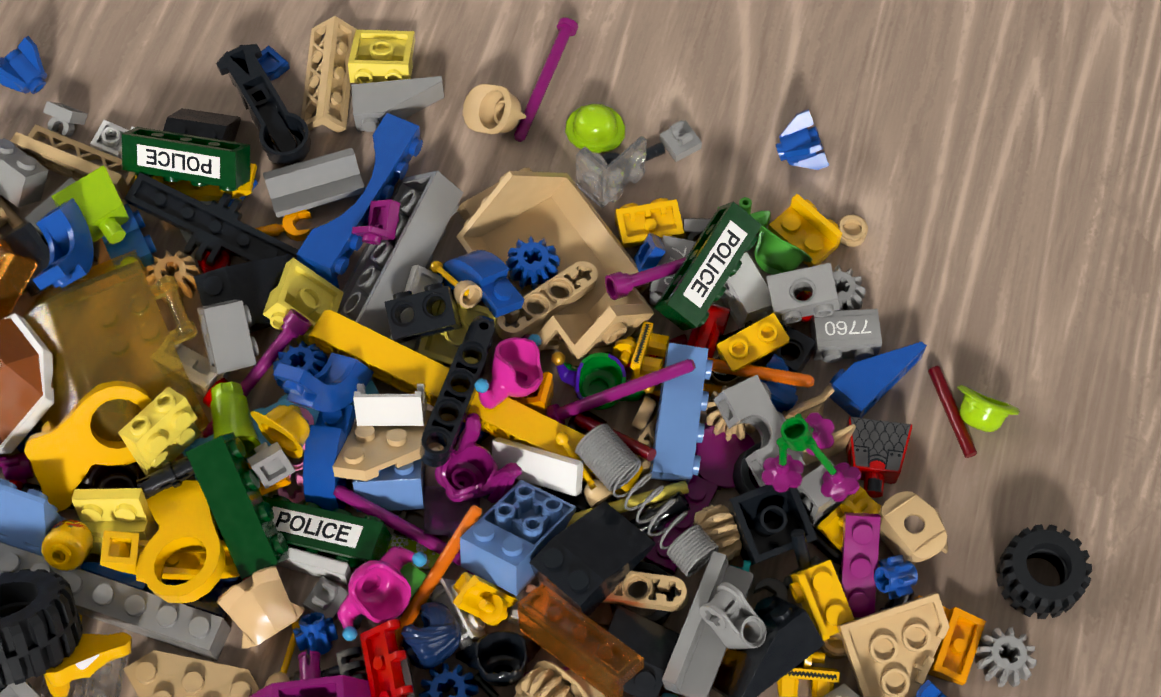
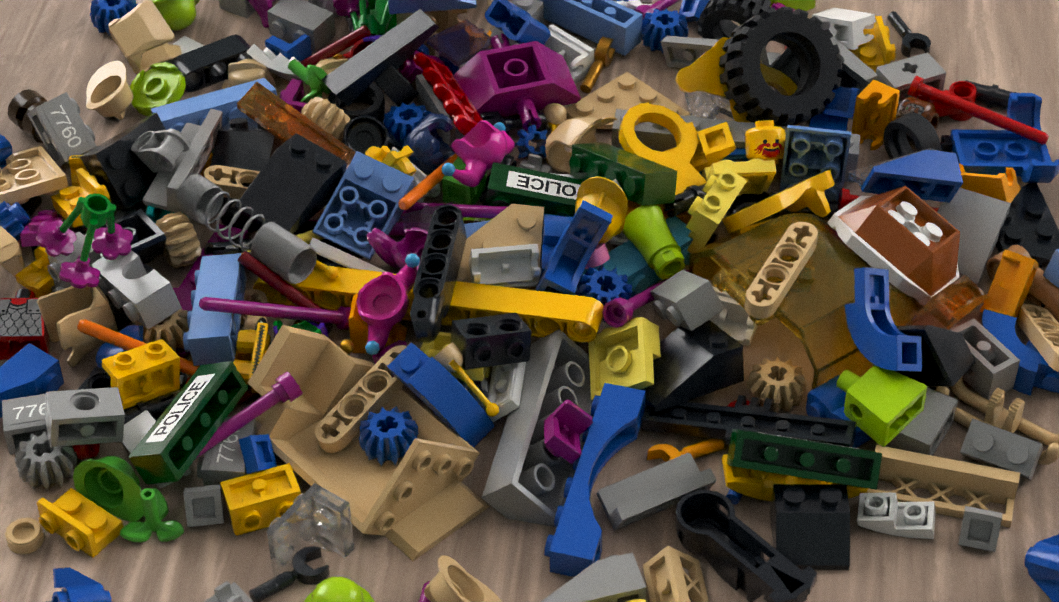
camera: 170 degrees right, 20 degrees down
(124, 308) = (785, 270): none -> tan beam

